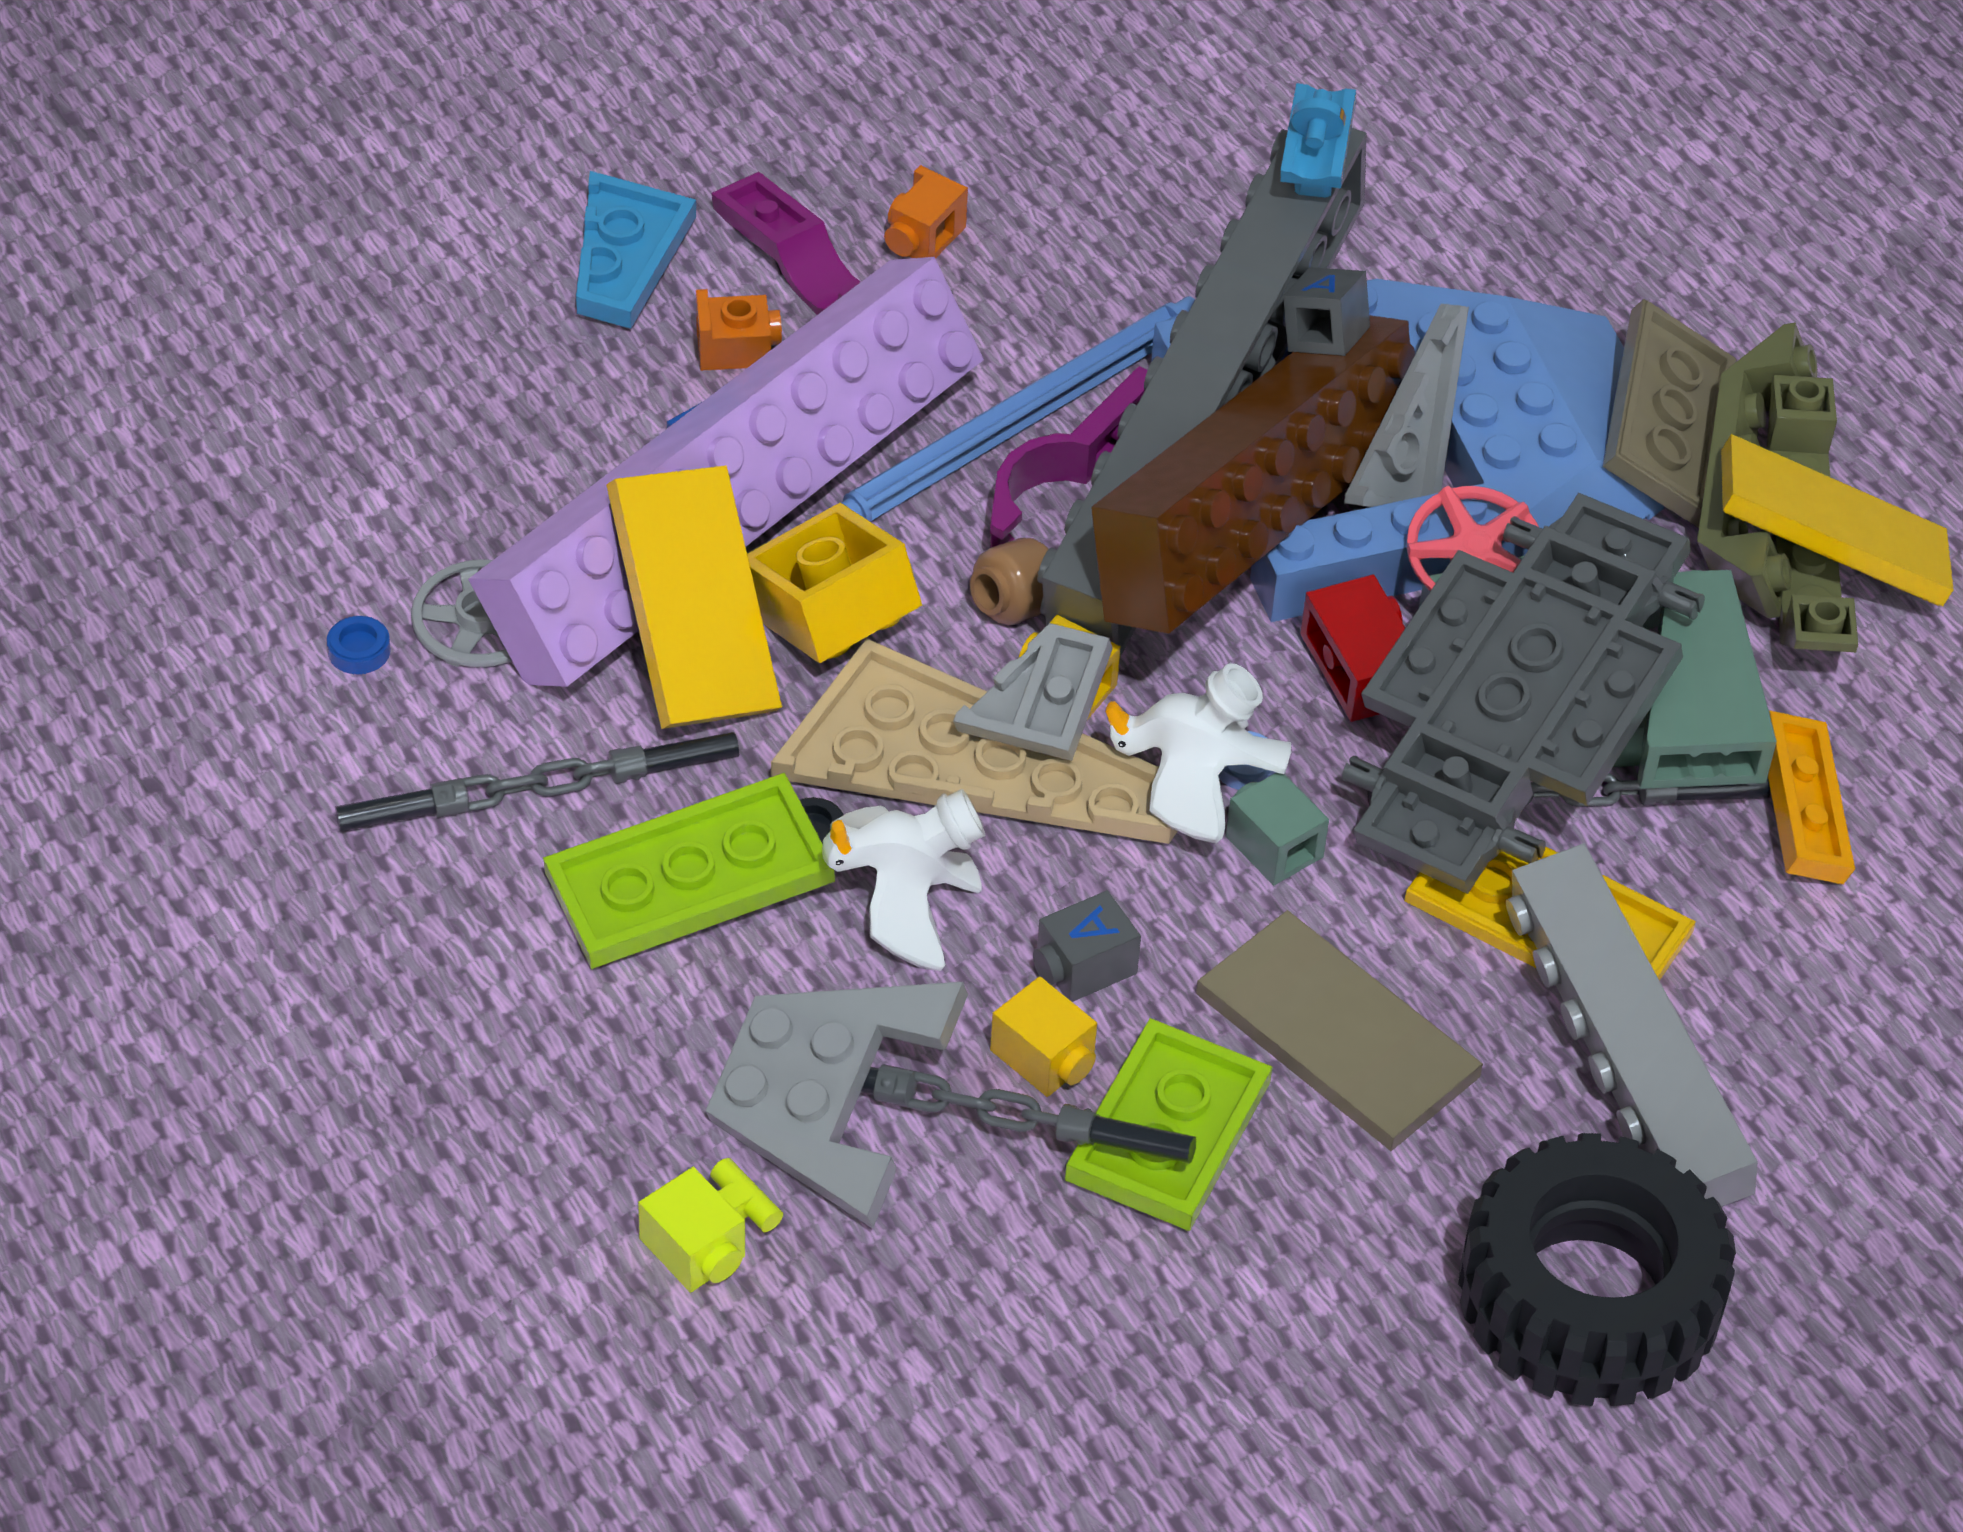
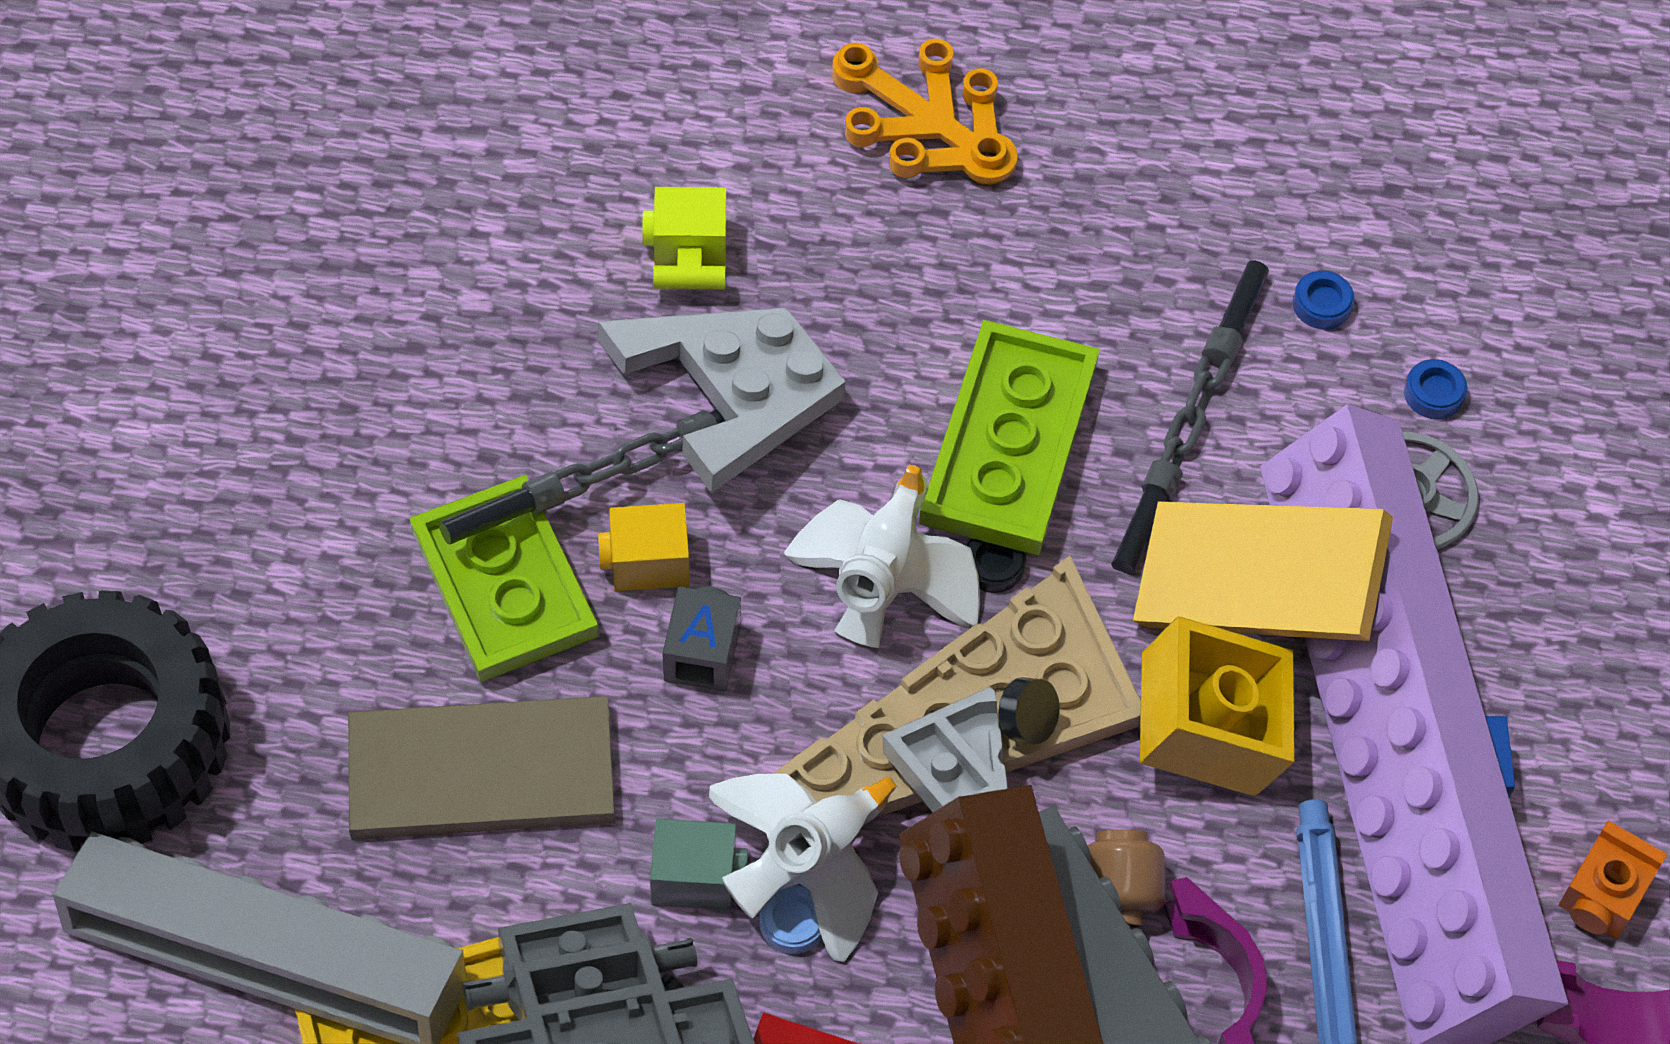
camera: 130 degrees right, 10 degrees up
(329, 761) = (1323, 299): none -> blue tile
(379, 1144) = (927, 118): none -> light orange plant
(952, 682) = (1029, 710): none -> black tile

